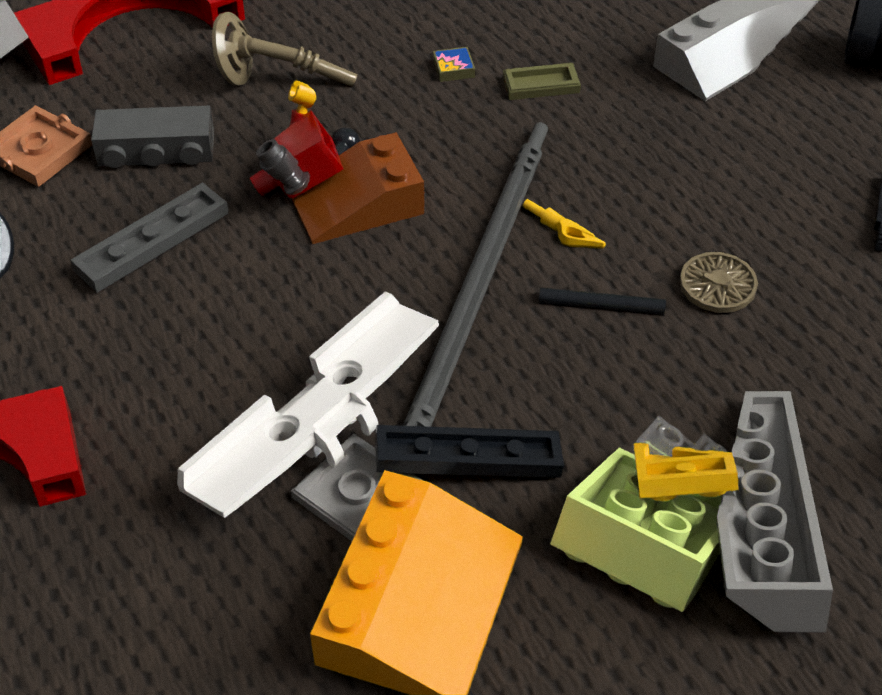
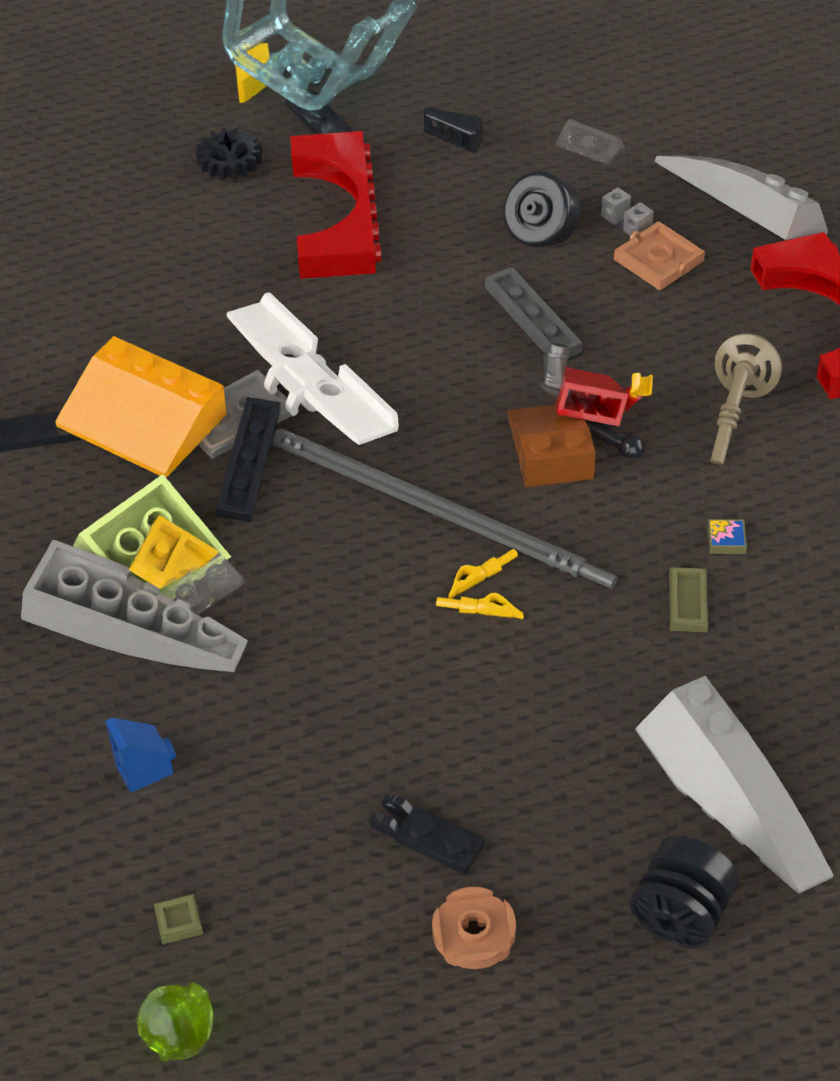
camera: 105 degrees right, 0 degrees up
(153, 136) = (648, 319): dark grey brick -> none
(602, 301) = (383, 580): black bar -> none
(608, 221) = (482, 606): none -> yellow hand
(718, 282) = (378, 664): dark tan wheel -> none

